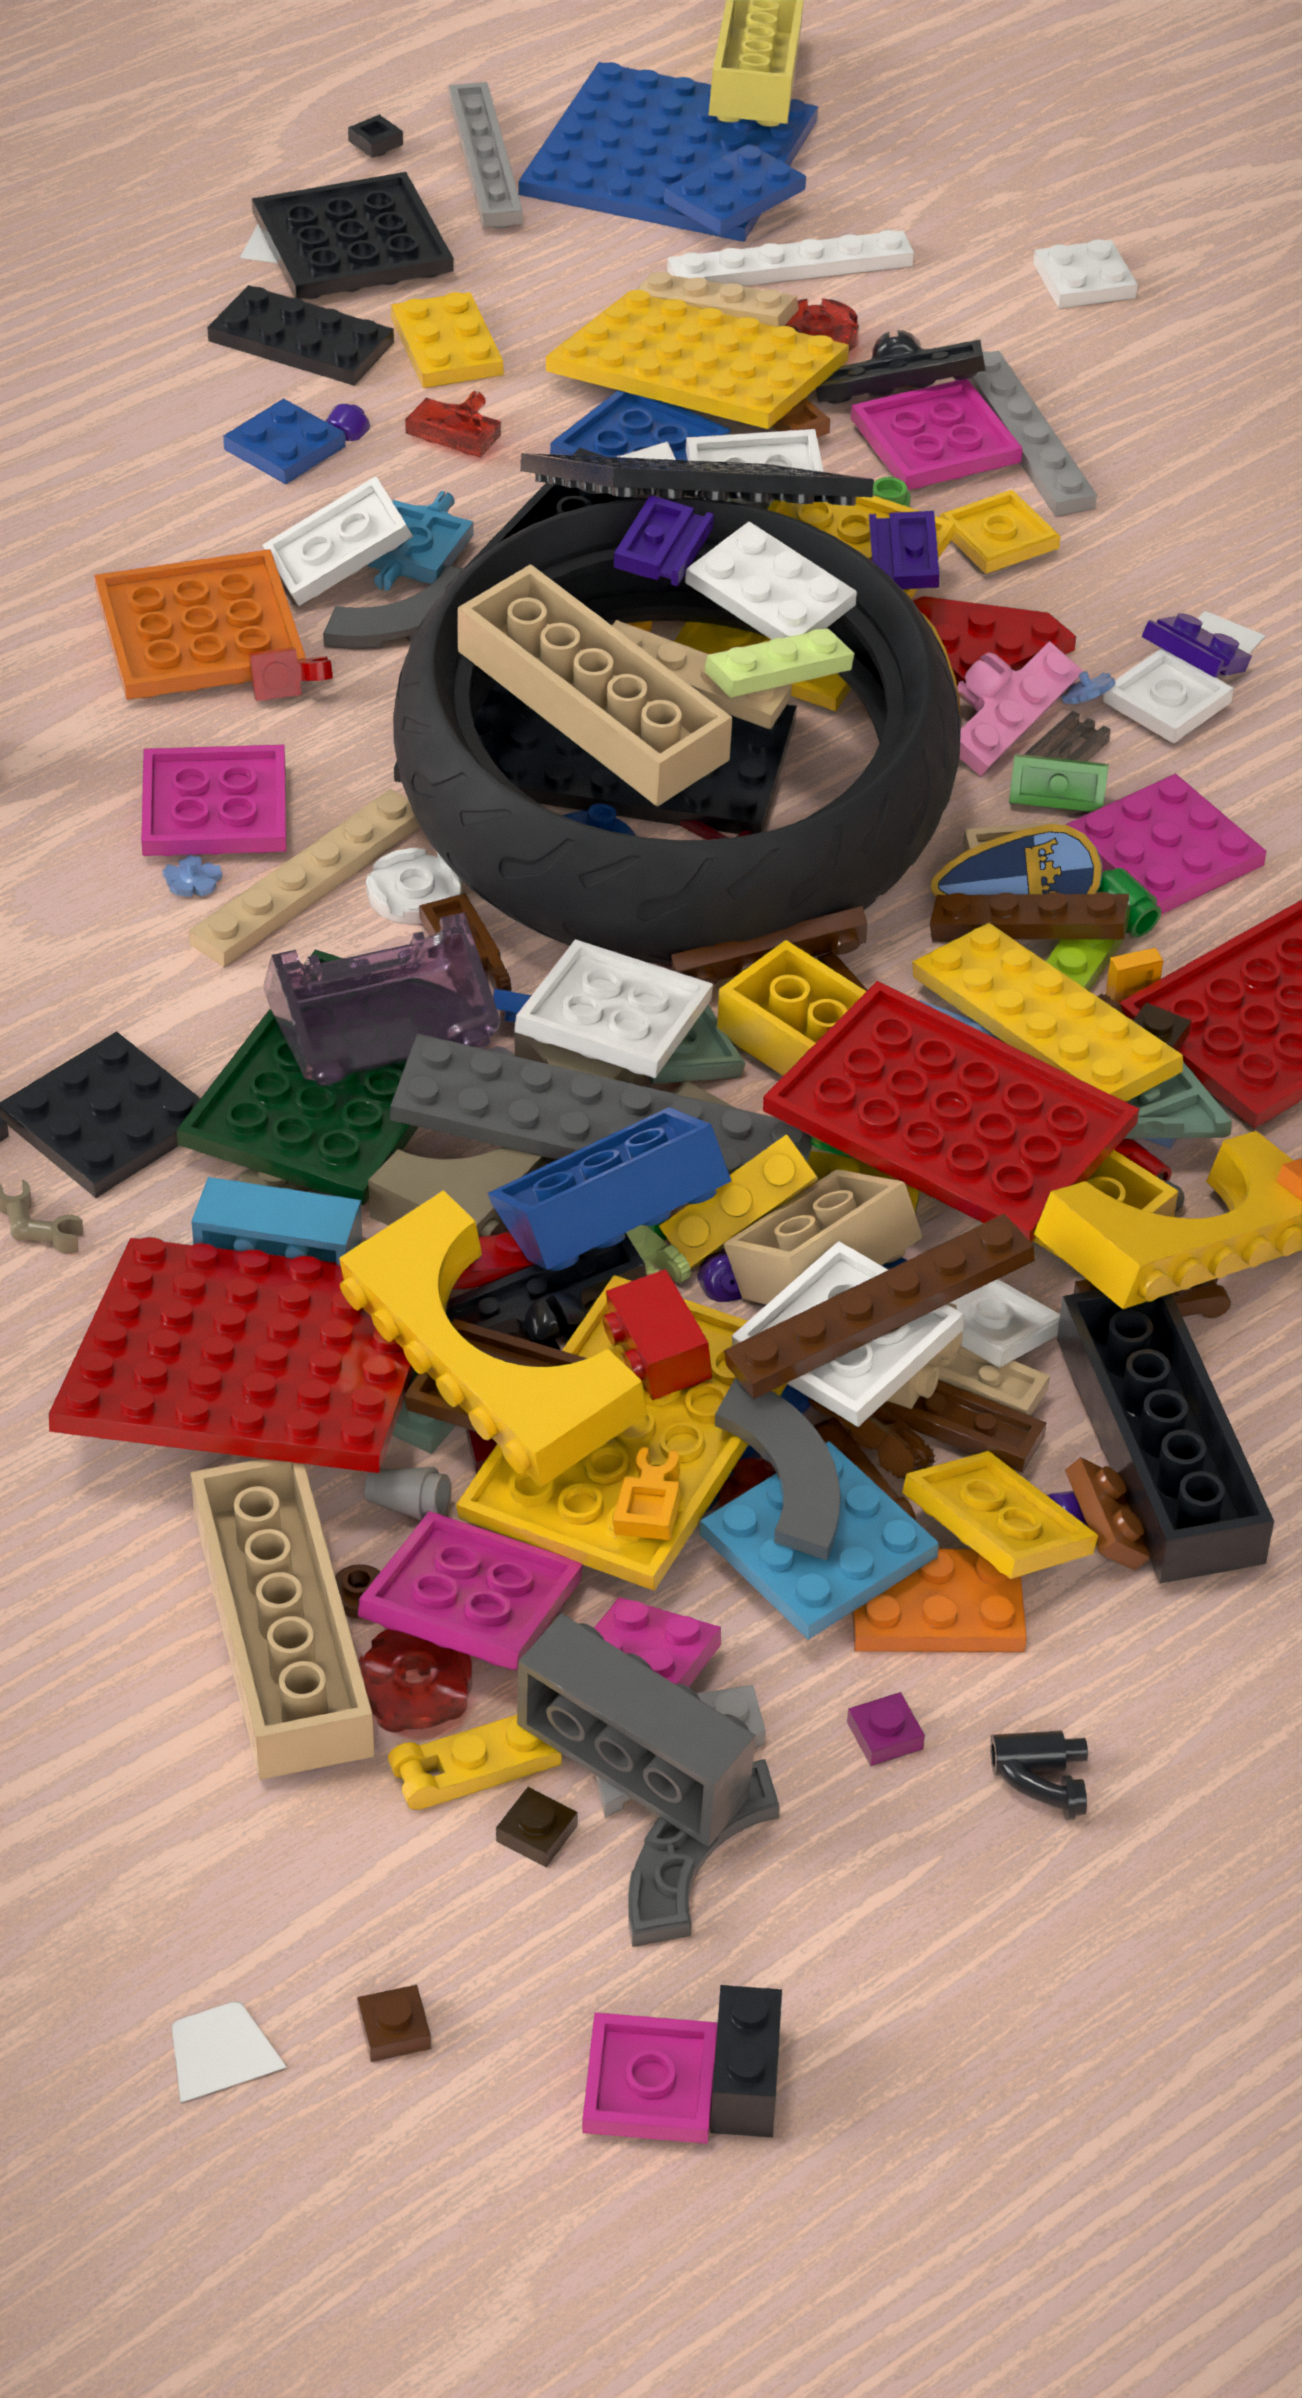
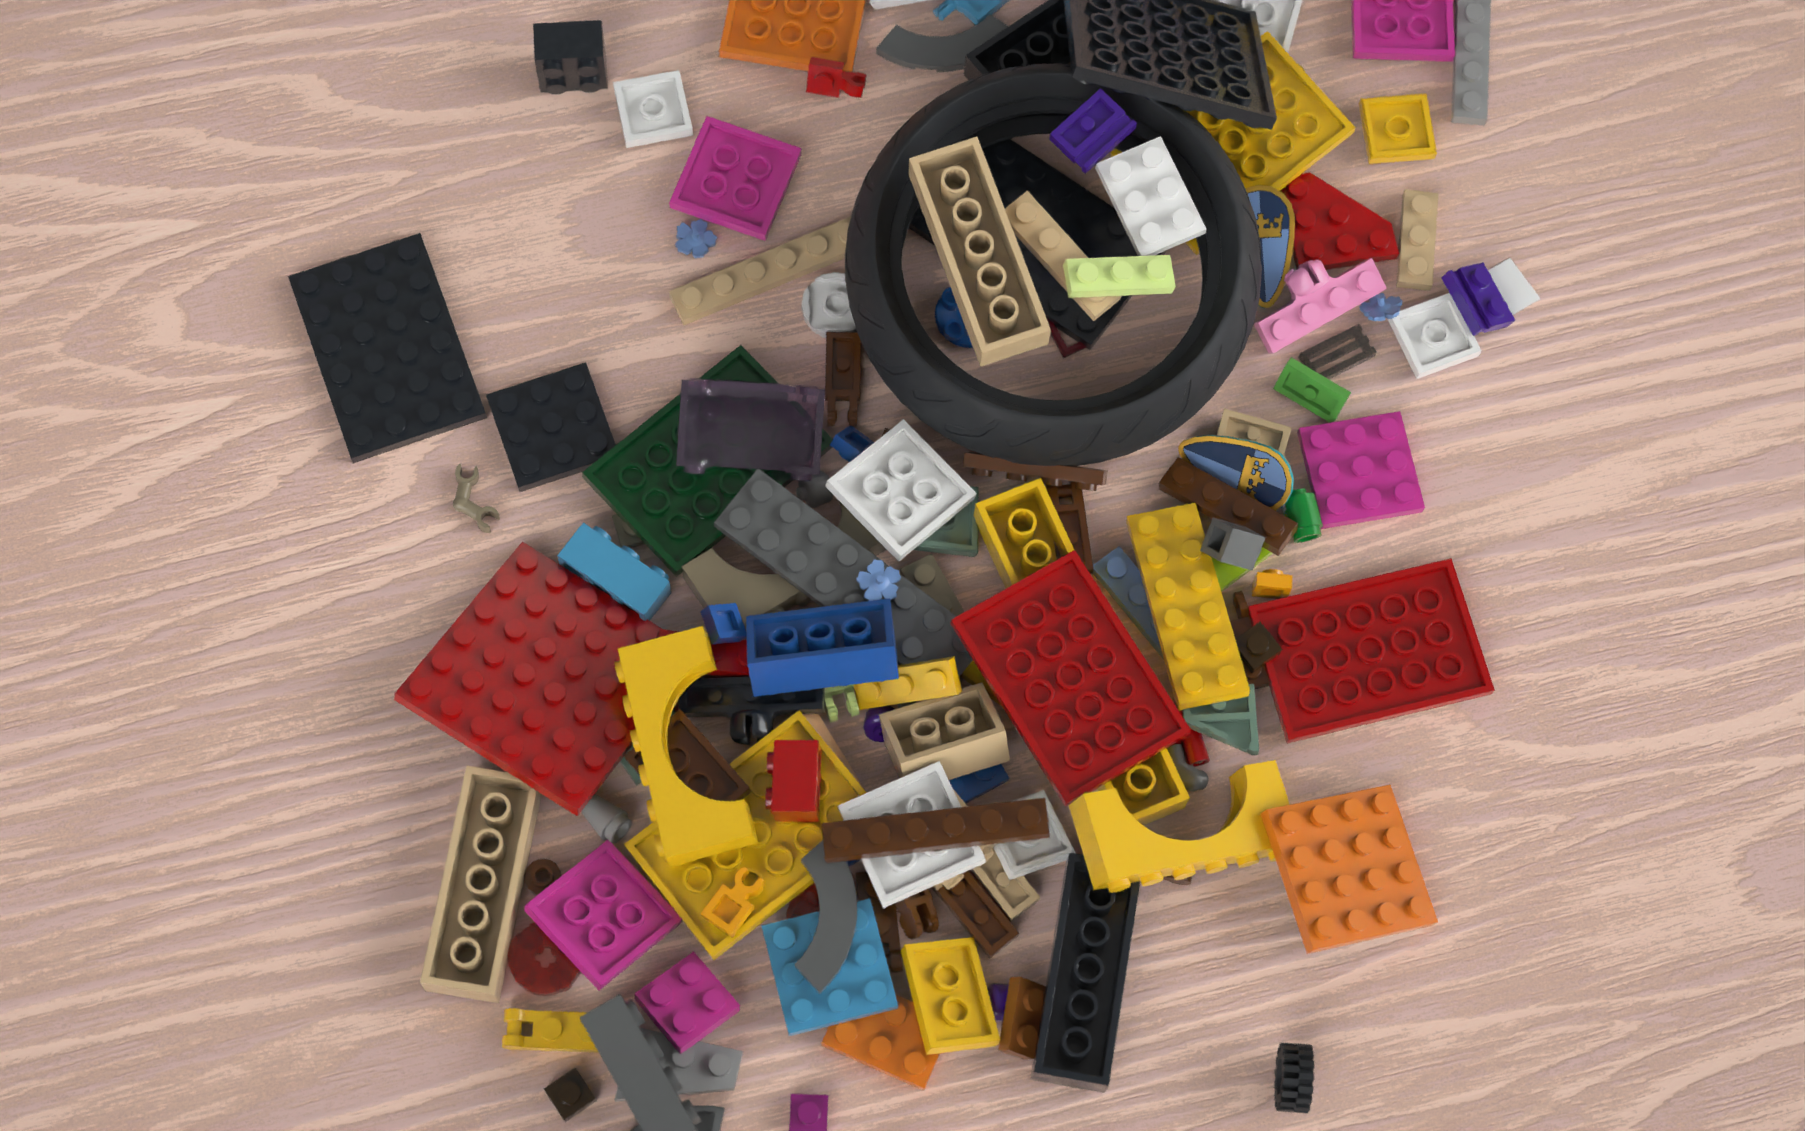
camera: 20 degrees right, 25 degrees up
(68, 766) = (653, 109): none -> white plate
(472, 1203) = (723, 623): none -> blue plate
(641, 1097) = (879, 582): none -> medium blue plant
(892, 490) = (1336, 63): bright green plate -> none
(906, 548) = (1302, 144): dark purple plate -> none
(1065, 928) = (1232, 544): none -> brick
(1086, 616) = (1417, 240): none -> tan plate

